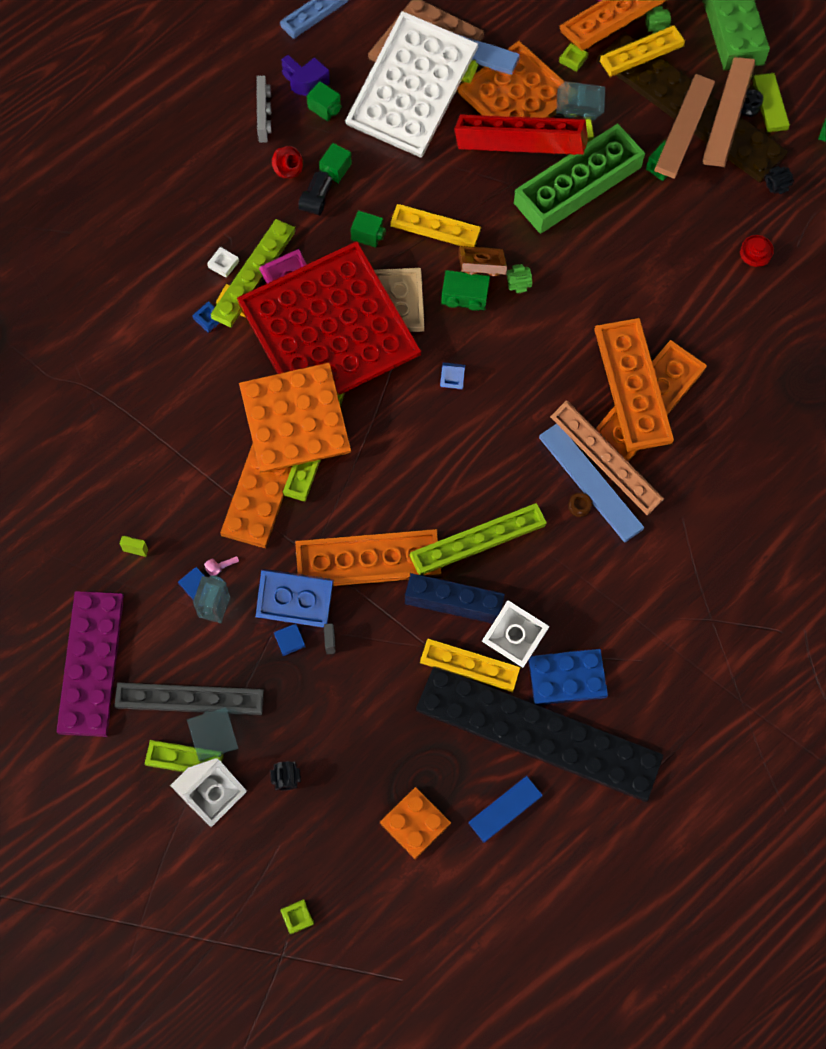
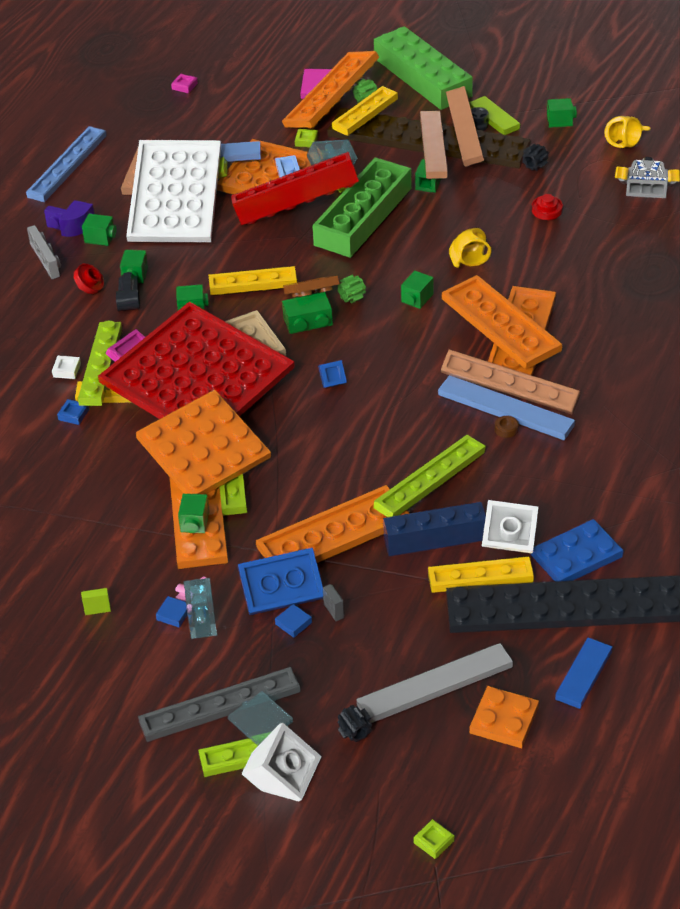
camera: 20 degrees left, 25 degrees down
(90, 664) = (101, 714): magenta plate -> none
(251, 493) = (193, 513): none -> green brick
(375, 761) = (435, 682): none -> light grey tile
(530, 100) = (286, 165): none -> light blue plate
(579, 305) = (417, 289): none -> green brick
(653, 273) = (469, 248): none -> yellow piece

